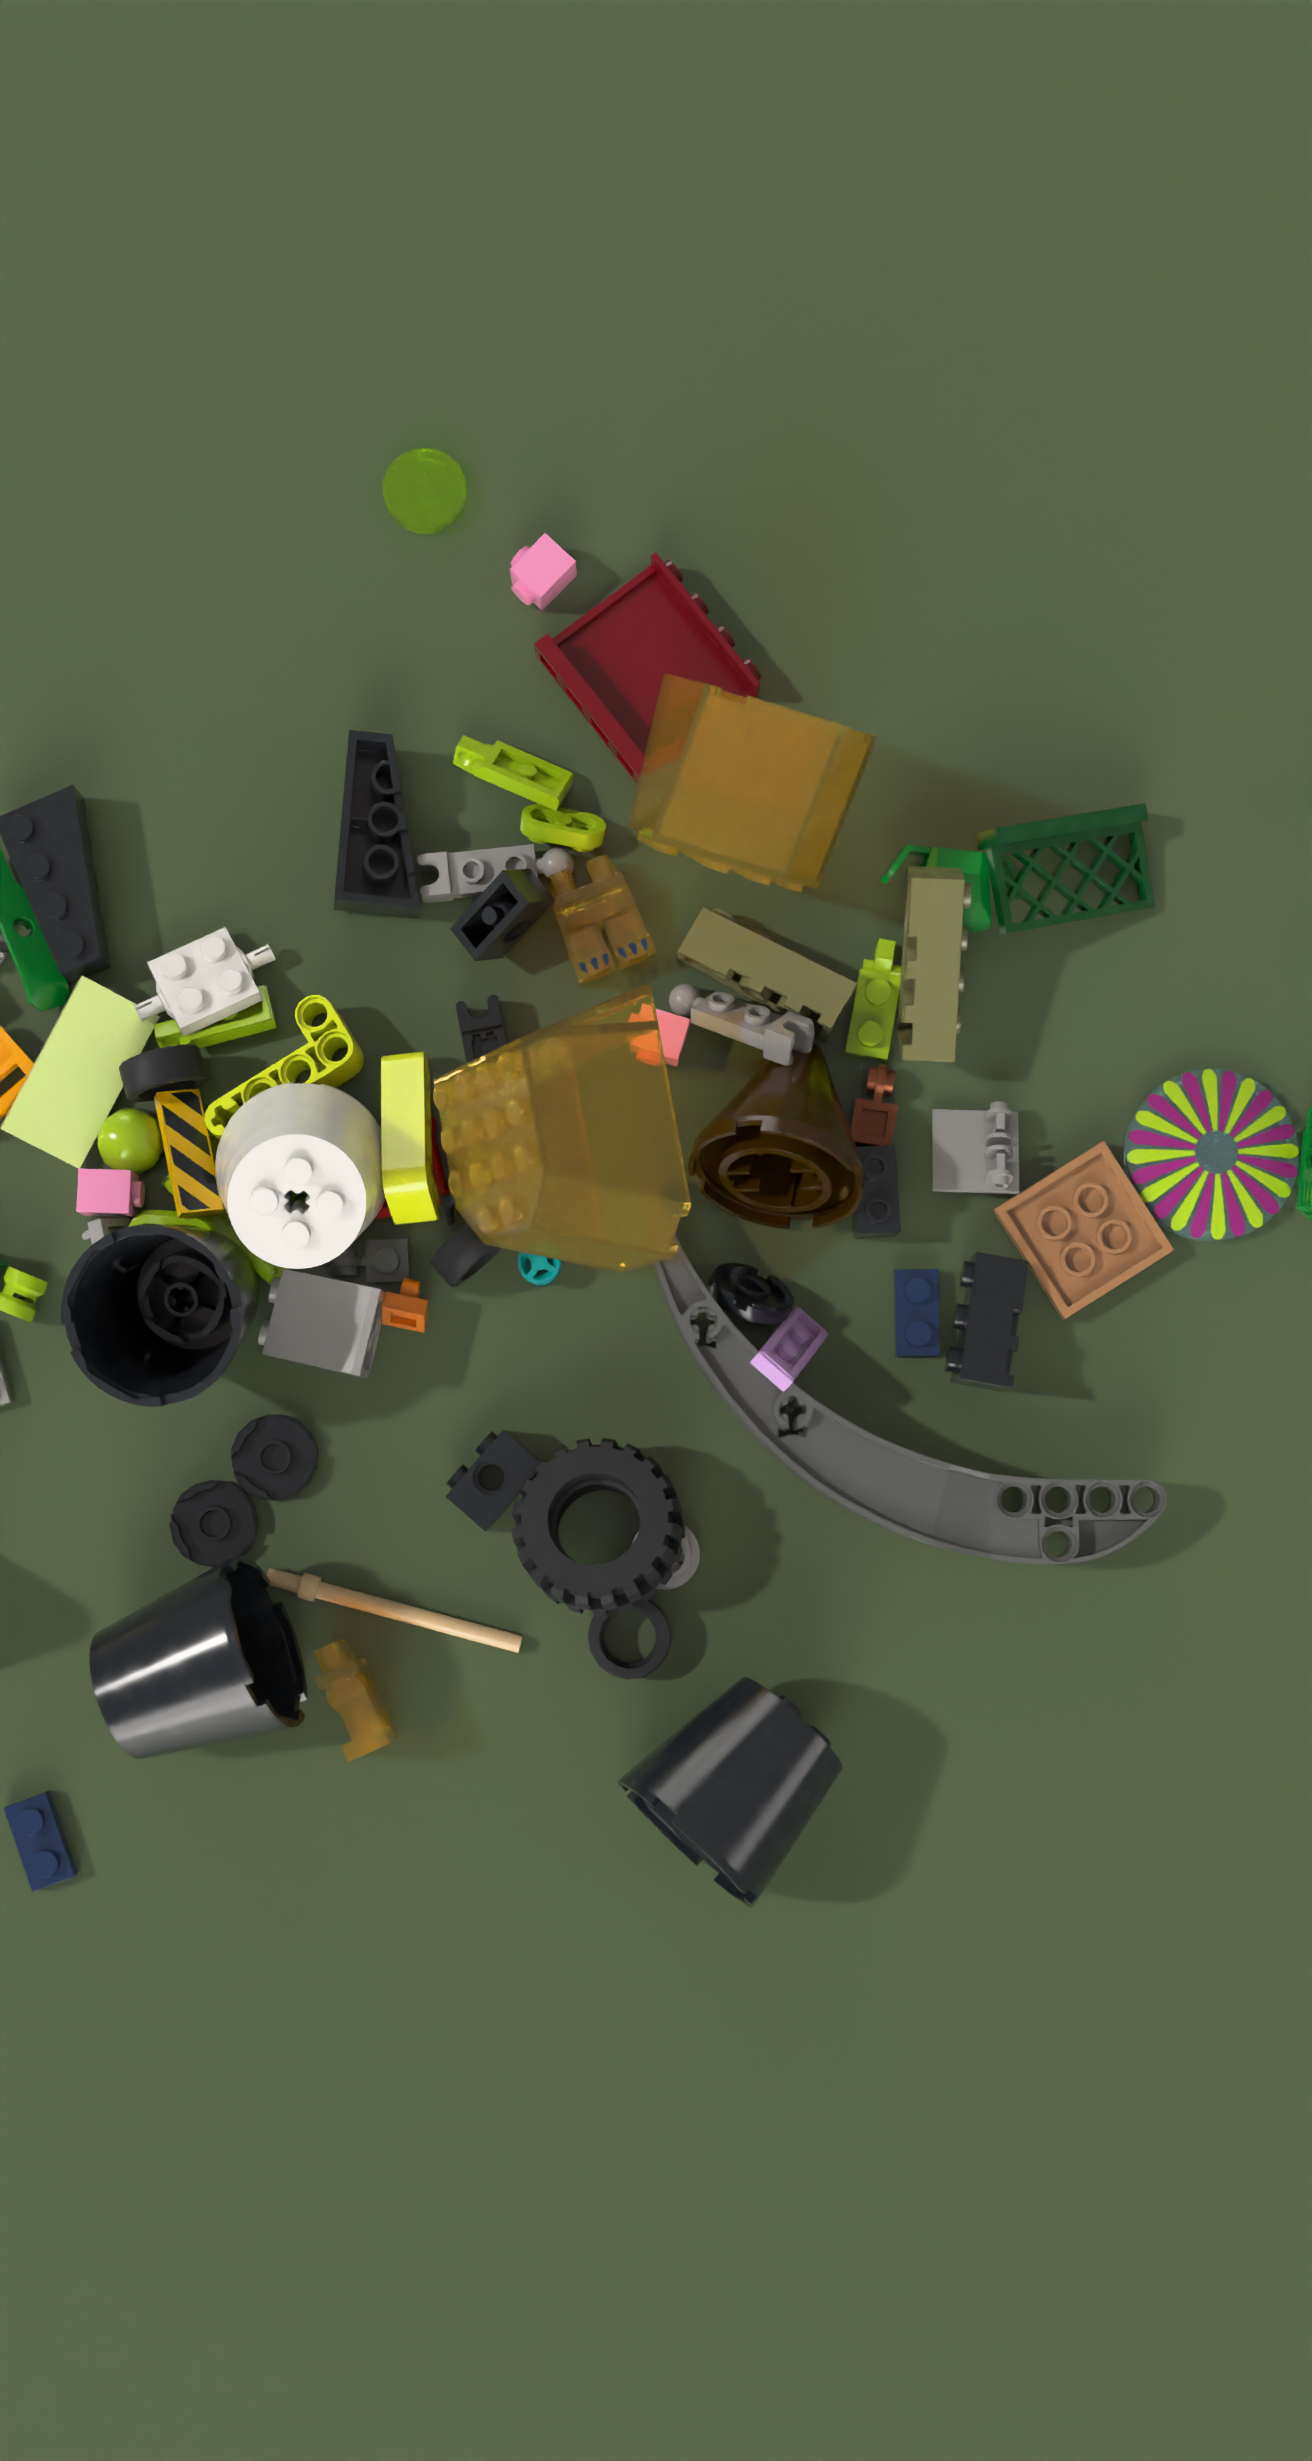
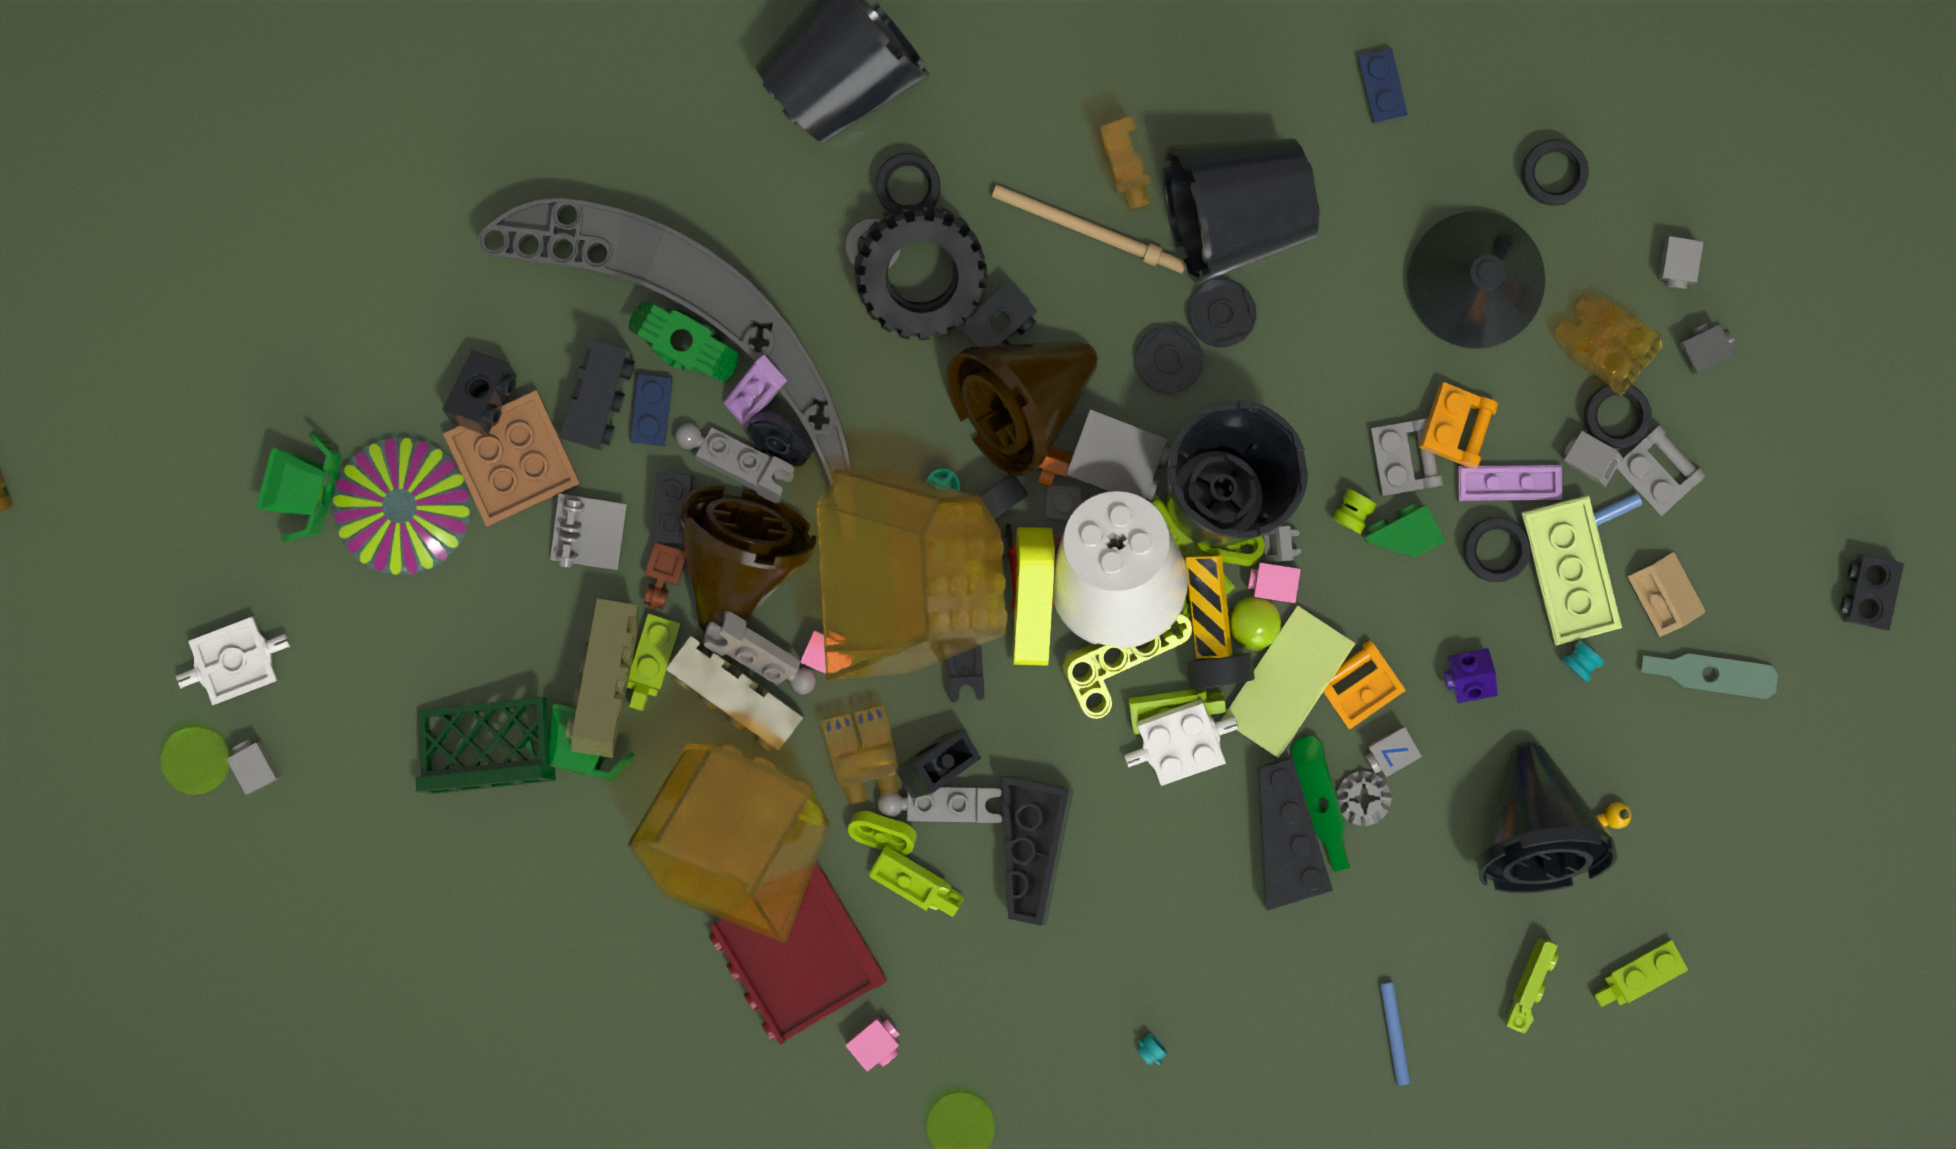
camera: 170 degrees left, 5 degrees up
(201, 607) = (1151, 1049): none -> teal plate
(453, 1382) = (1019, 397): none -> dark brown cone
(803, 1262) = (736, 460): none -> light grey plate
(859, 1387) = (704, 355): none -> green piece
(1142, 1327) = (480, 374): none -> black brick

